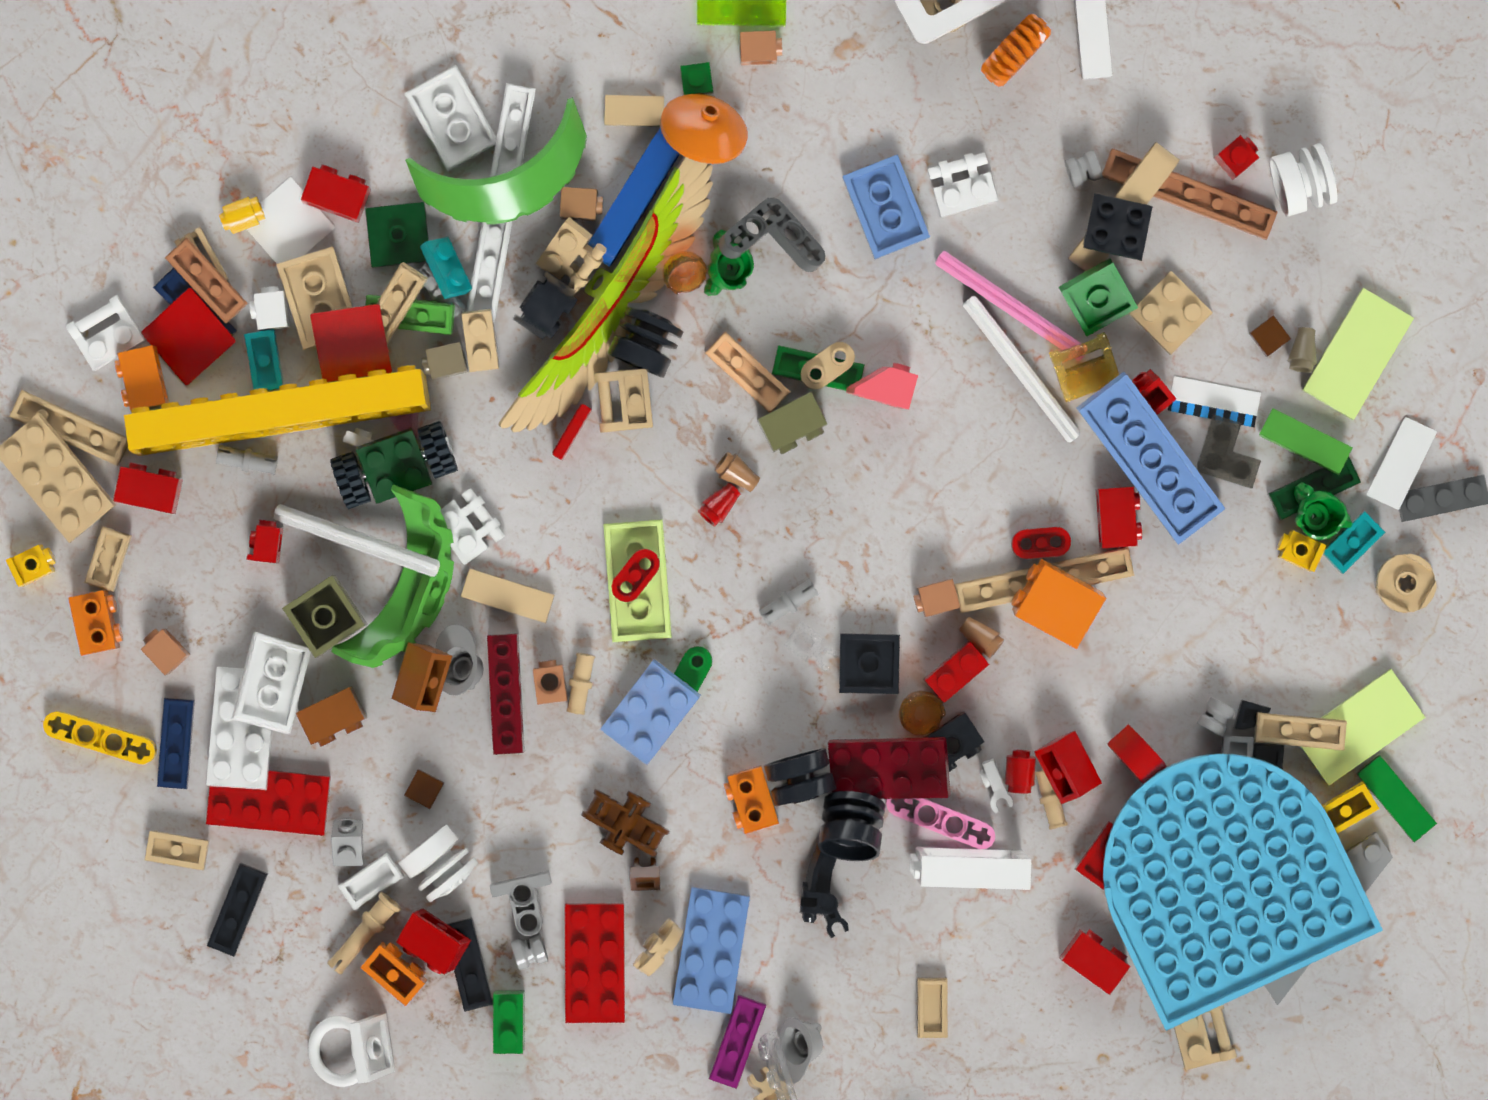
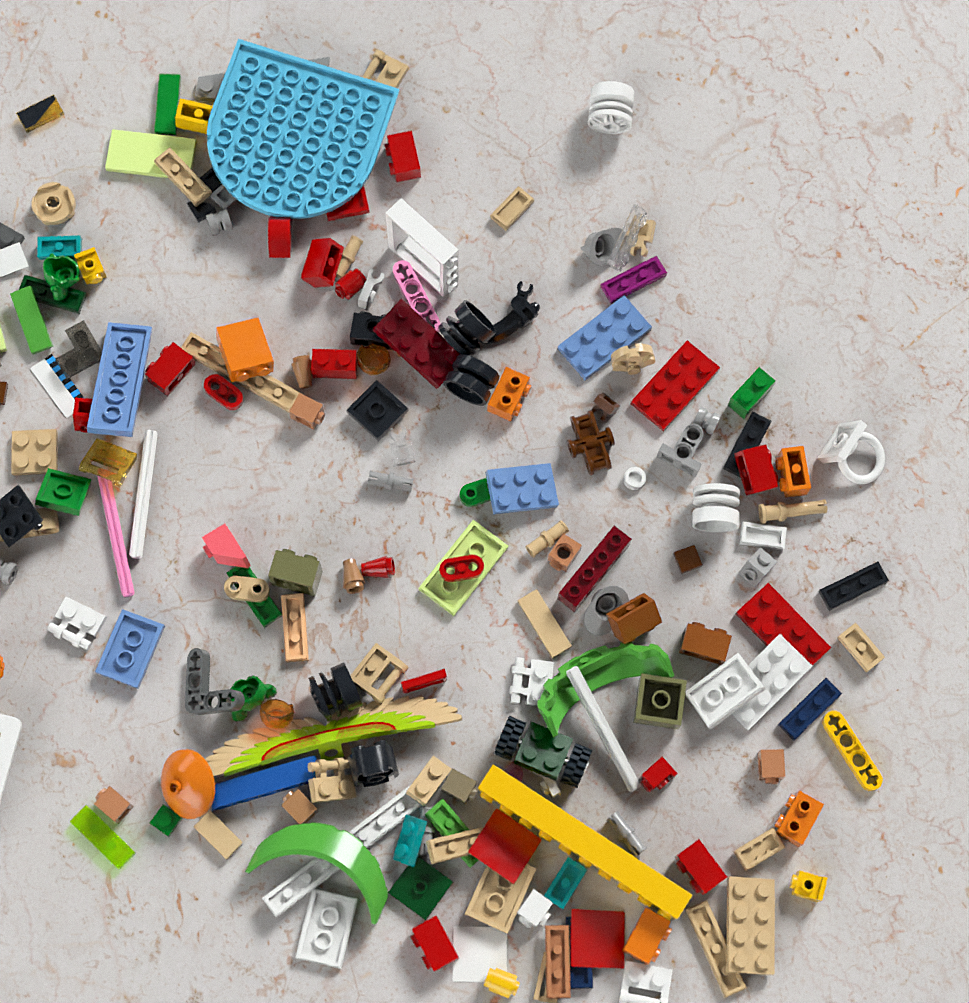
camera: 145 degrees left, 15 degrees down
(549, 826) = (634, 478): none -> white tile

